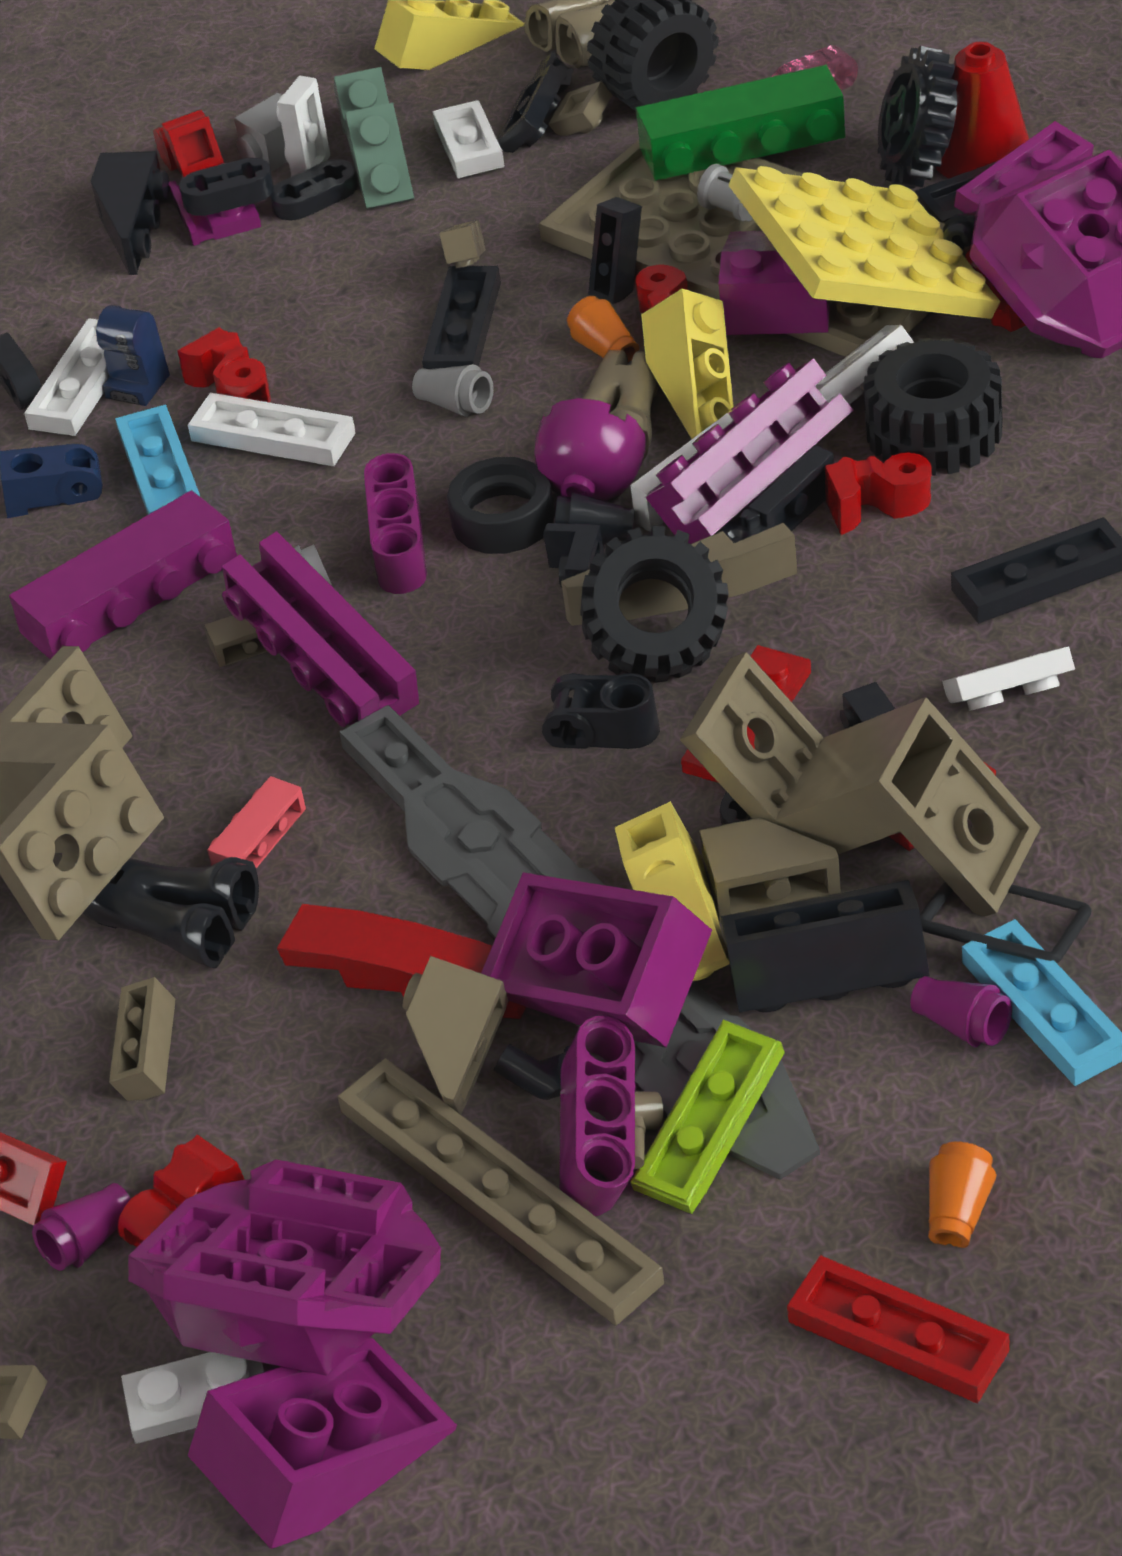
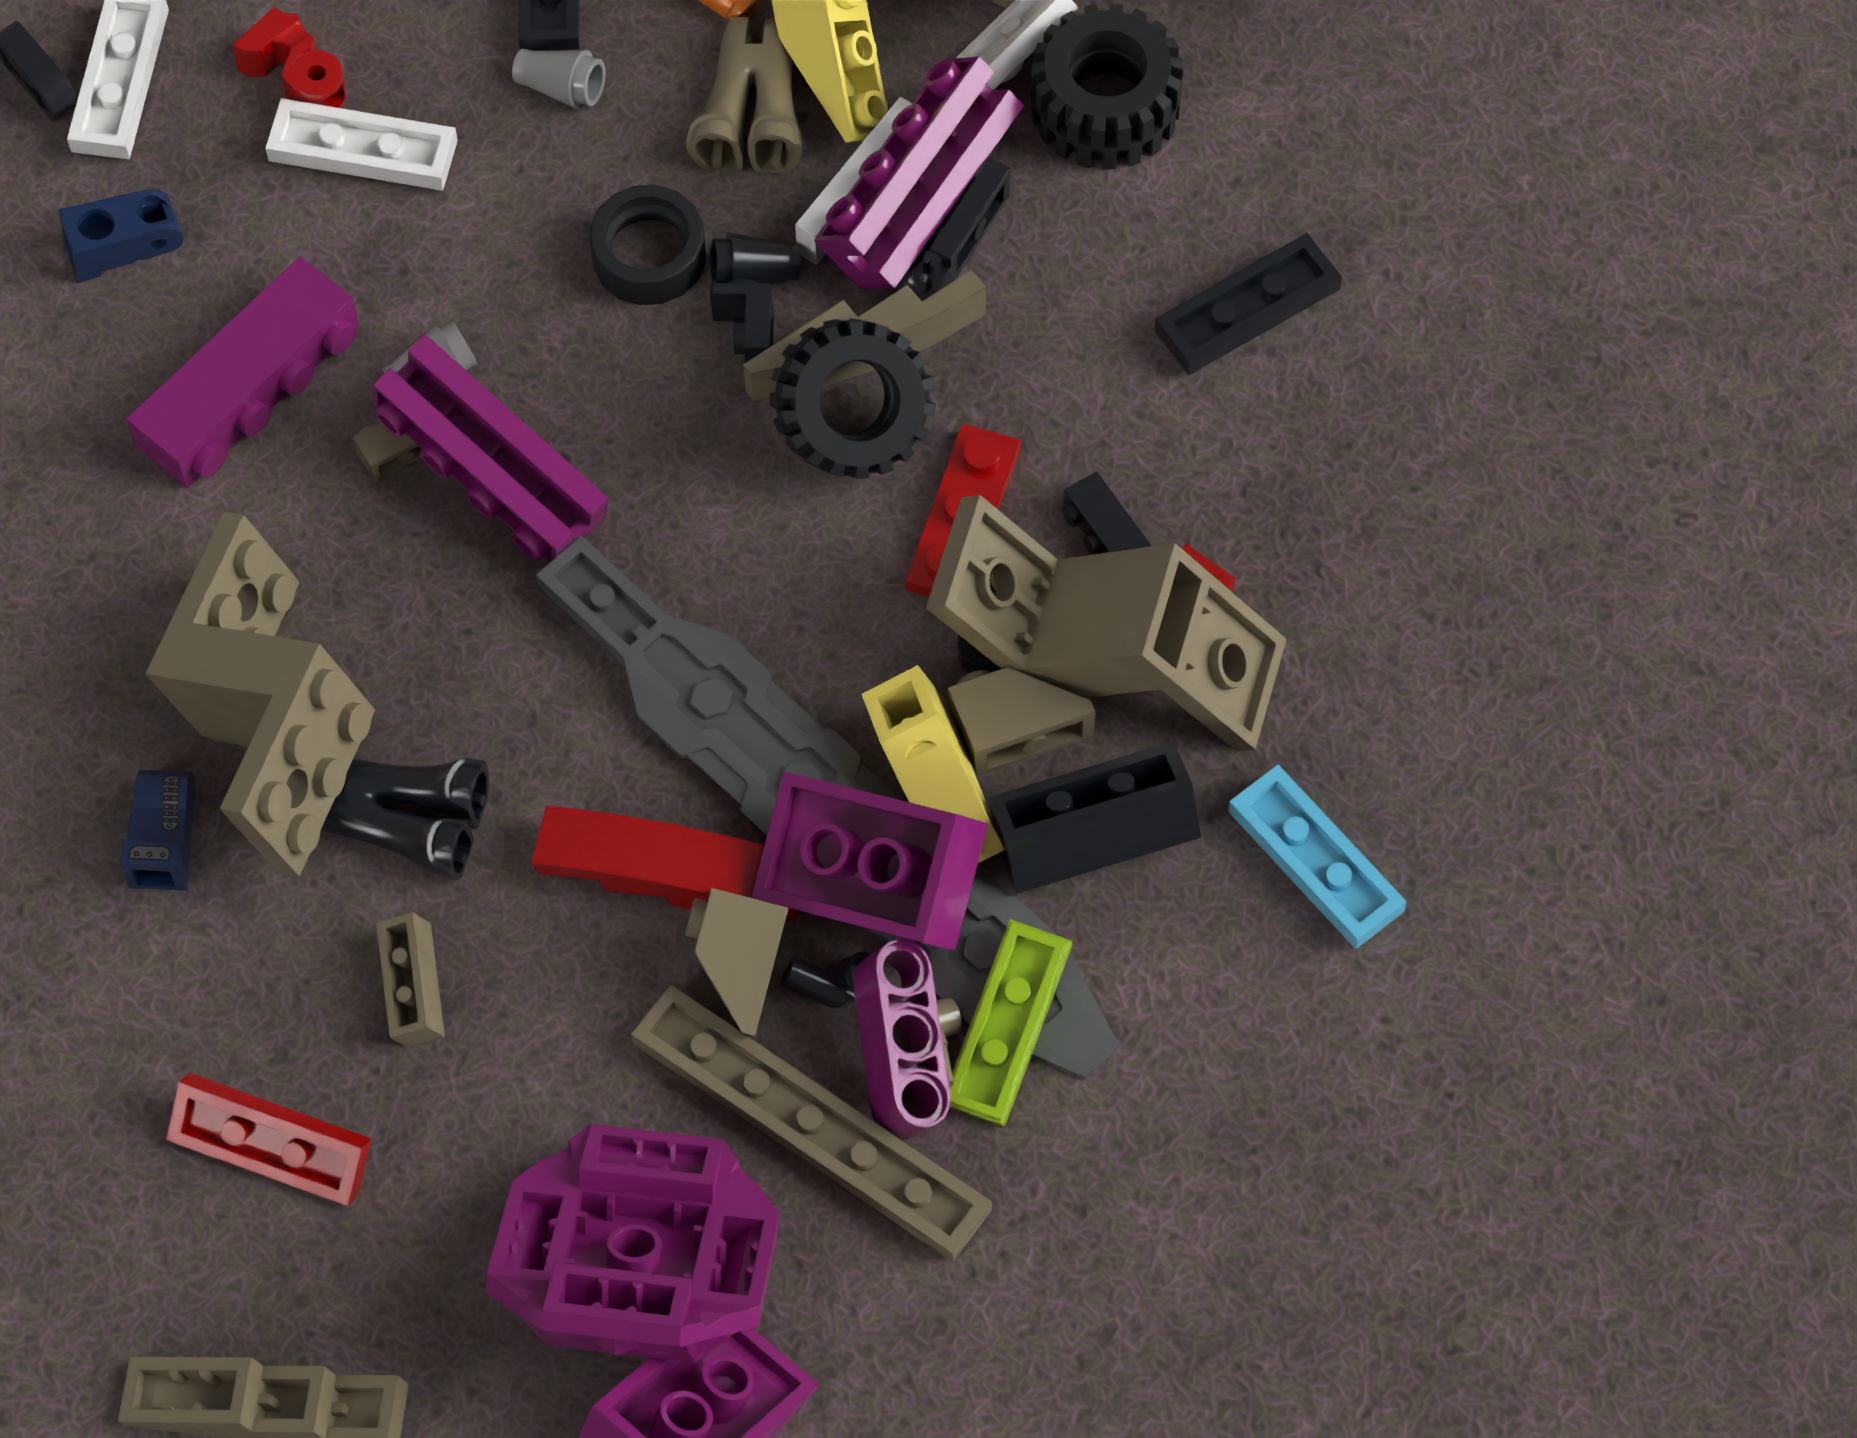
camera: 15 degrees left, 20 degrees up
(79, 1227) = (399, 1206): magenta cone -> none
(131, 354) = (177, 54): dark blue leg -> none
(155, 457) = (241, 203): medium azure plate -> none
(173, 1394) = (550, 1382): white plate -> none
(192, 1170) = (505, 1152): red leg -> none
(259, 823) = (468, 701): coral piece -> none
(395, 523) = (533, 256): magenta beam -> none
(588, 449) = (738, 179): magenta cylinder -> none
(604, 710) = (807, 526): black piece -> none
(895, 487) = (1080, 199): red leg -> none
(899, 1328) = (1224, 1242): red plate -> none
(958, 1191) = (1261, 1087): orange cone -> none
(965, 1009) = (1240, 873): magenta cone -> none
(1004, 946) = (1265, 795): black piece -> none
(1033, 673) = (1249, 444): white plate -> none

